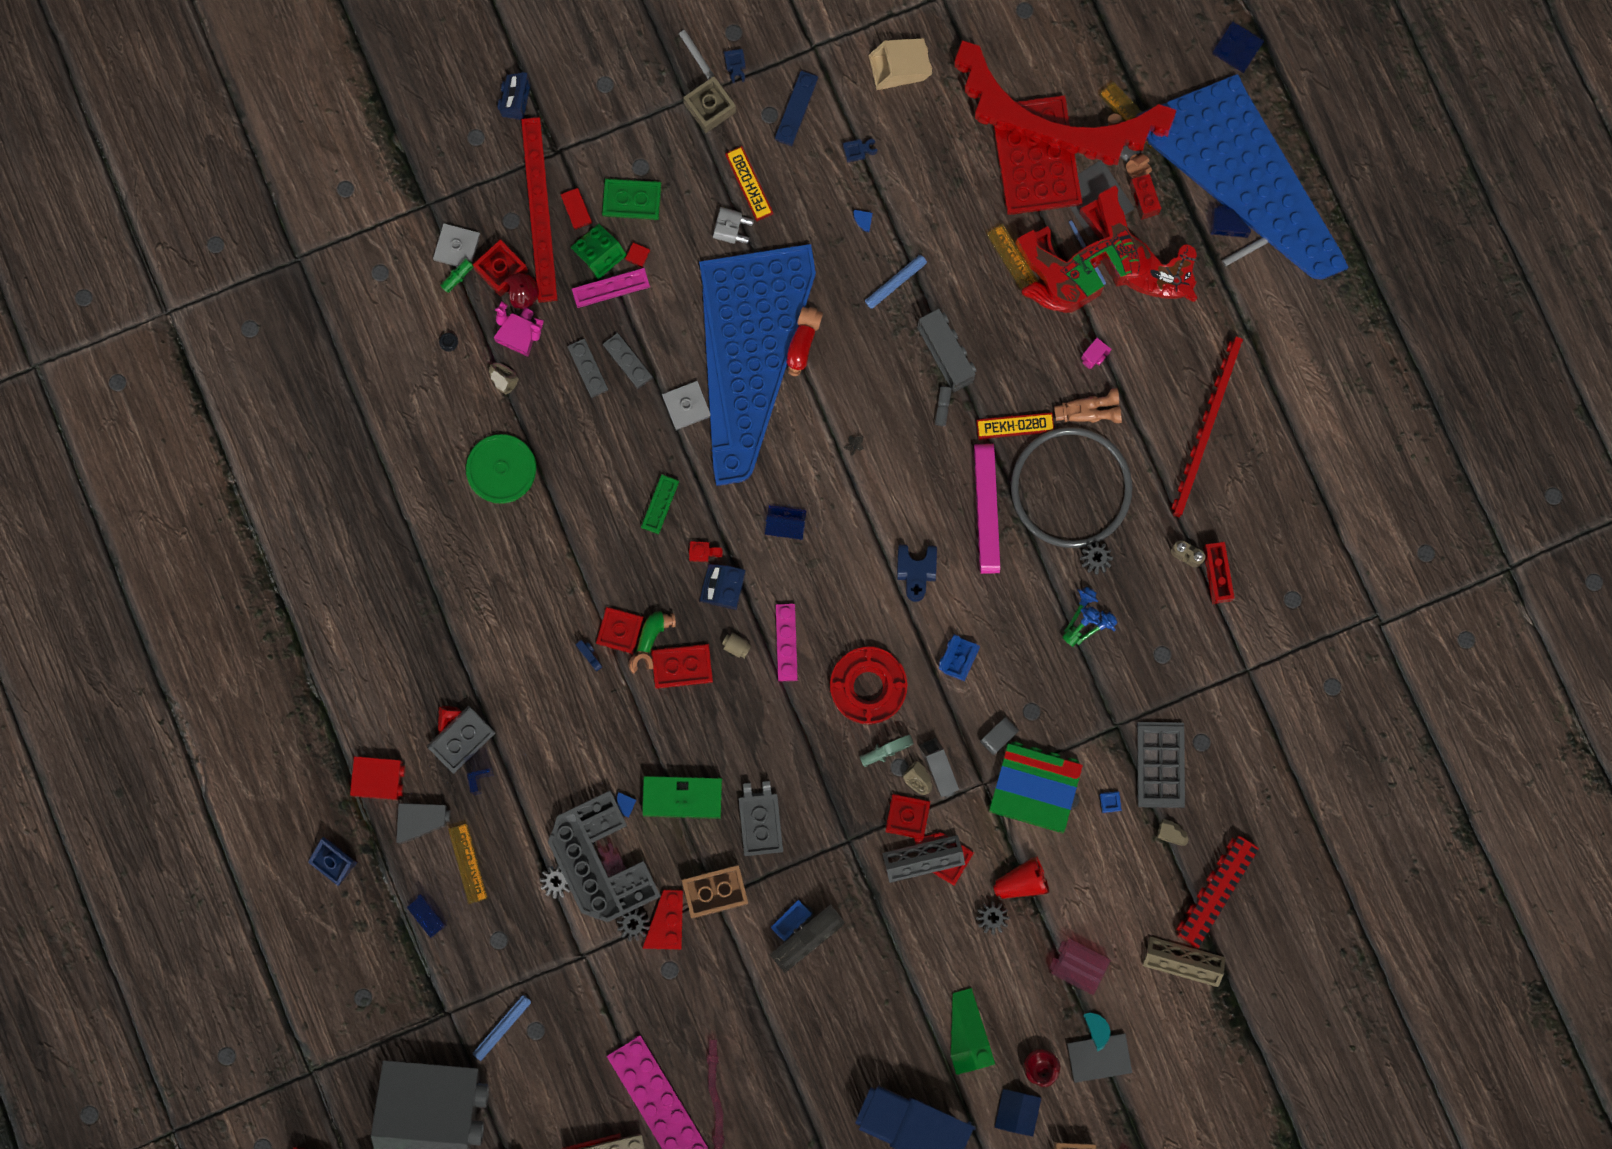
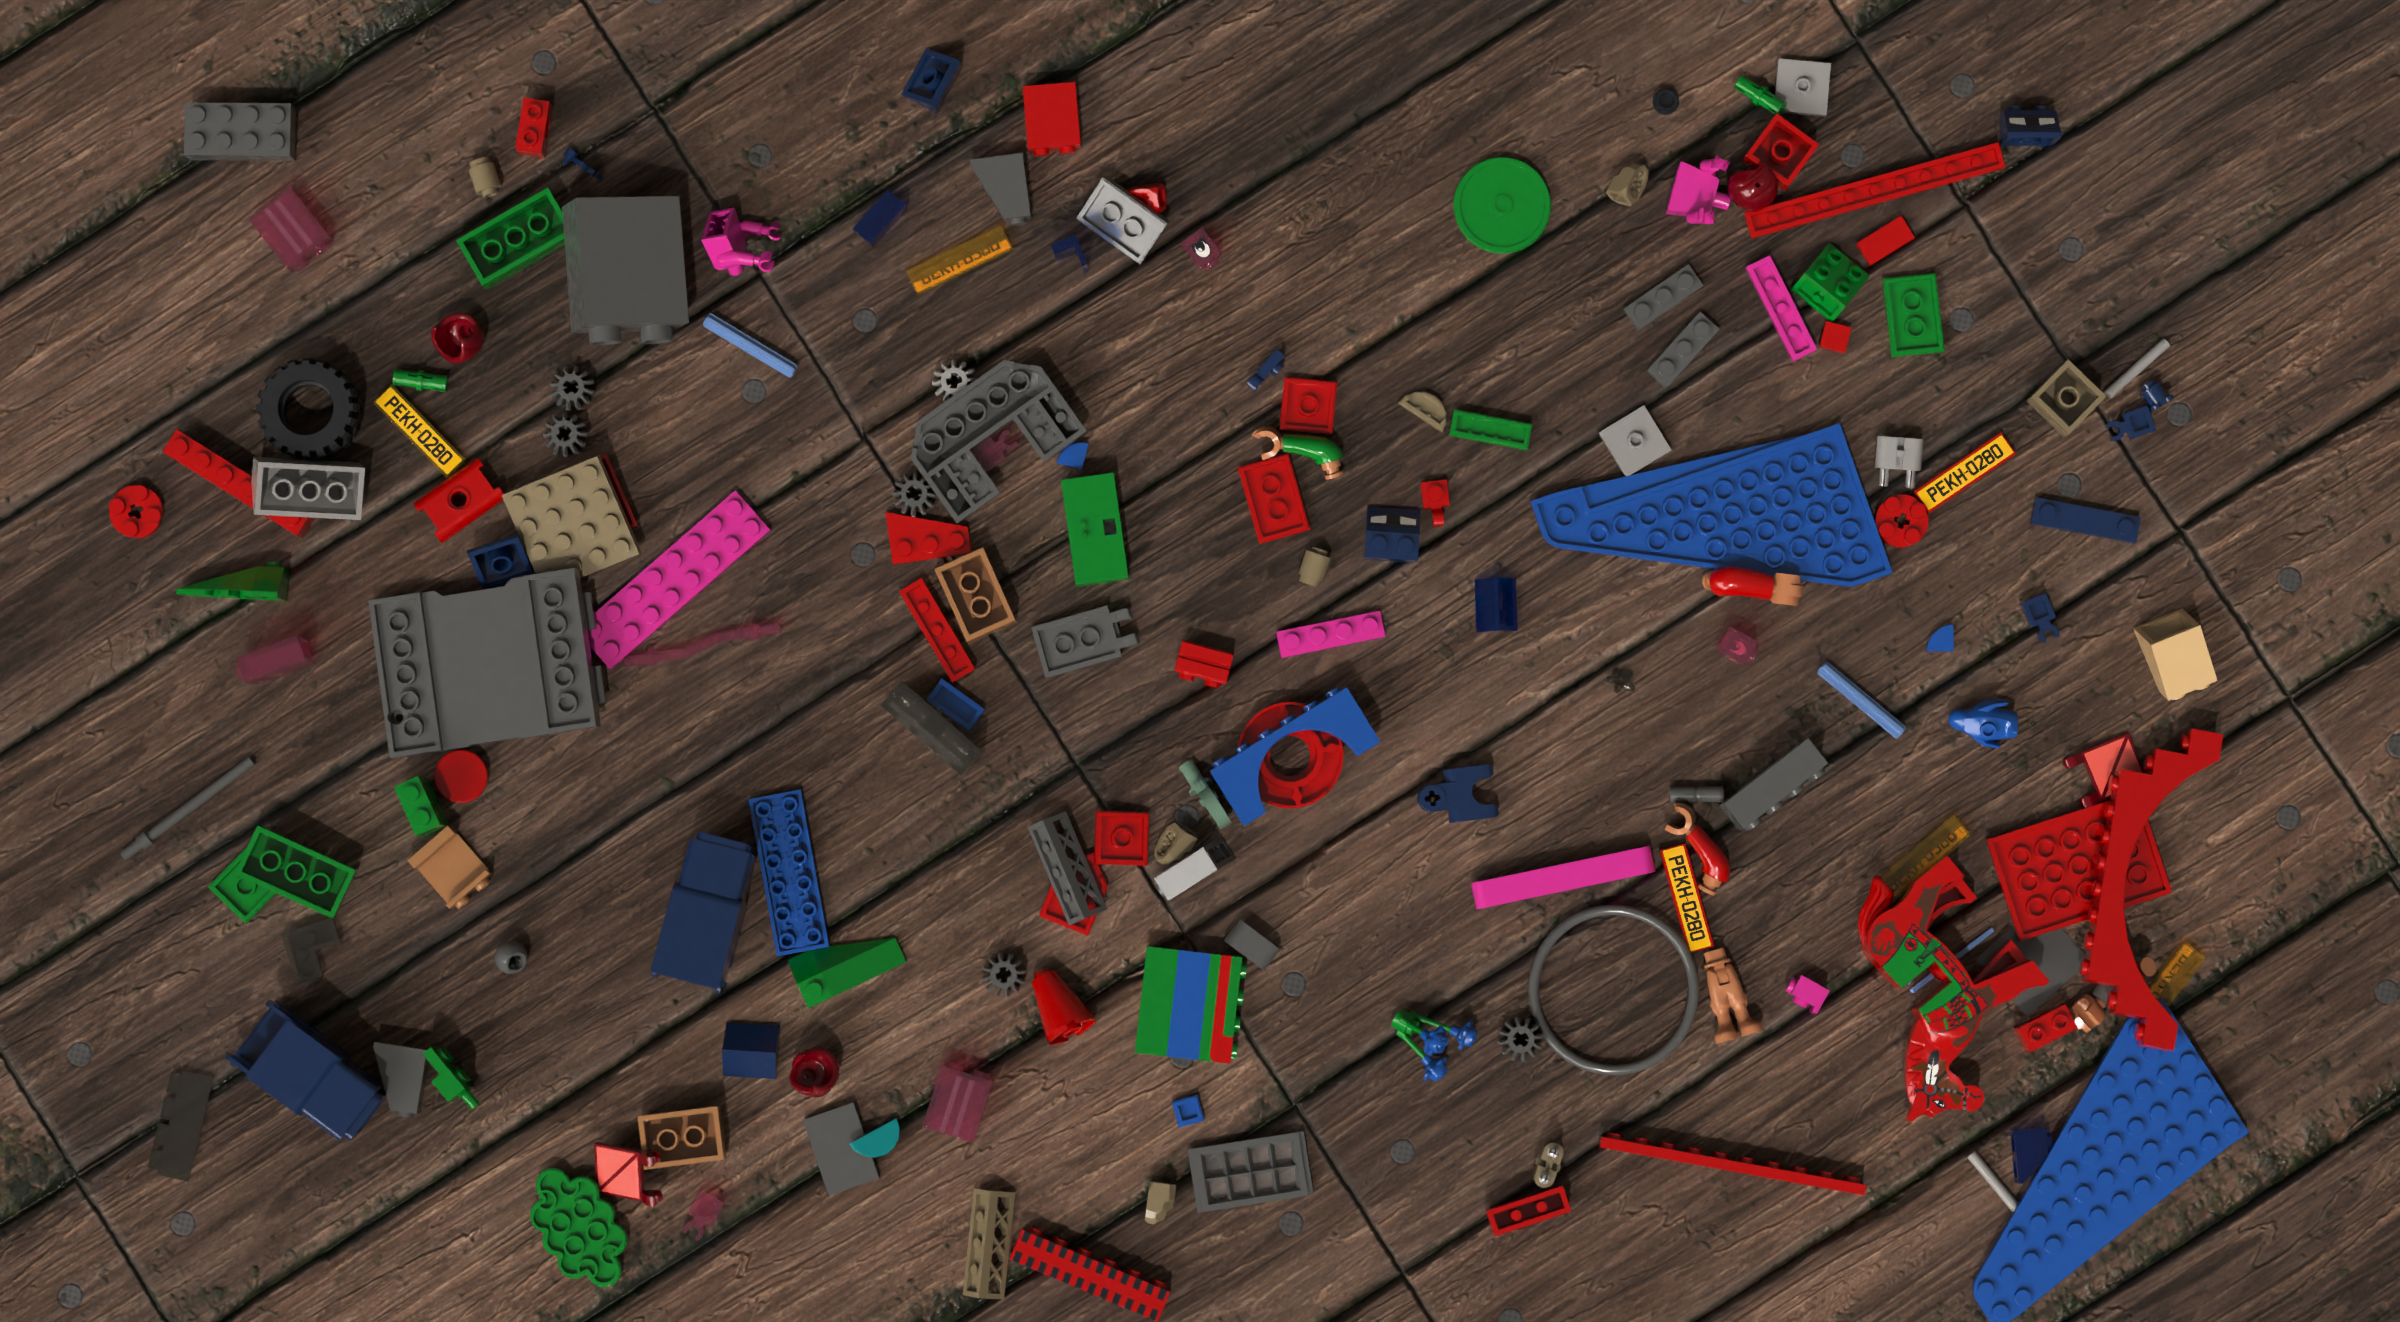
camera: 85 degrees right, 5 degrees up
(336, 1139) = (570, 155): none -> dark blue piece
(424, 1032) = (727, 245): none -> dark pink torso
(493, 686) = (1201, 250): none -> clear pink brick
(636, 547) = (1426, 407): none -> dark tan tile
(717, 45) = (2155, 394): none -> dark blue brick
(735, 925) = (937, 630): none -> red plate
(771, 222) = (1915, 514): none -> red plate
(792, 735) = (1203, 663): none -> red brick
(844, 359) = (1737, 646): none -> clear pink brick
(877, 722) = (1335, 716): none -> blue arch
(893, 1063) = (789, 872): none -> blue plate
(926, 198) = (1986, 722): none -> blue animal
(958, 658) = (1349, 871): blue bracket -> none
(968, 127) = (2102, 763): none -> flag
(992, 401) = (1714, 861): none -> red piece
(1238, 47) = (2289, 1127): clear blue plate -> none

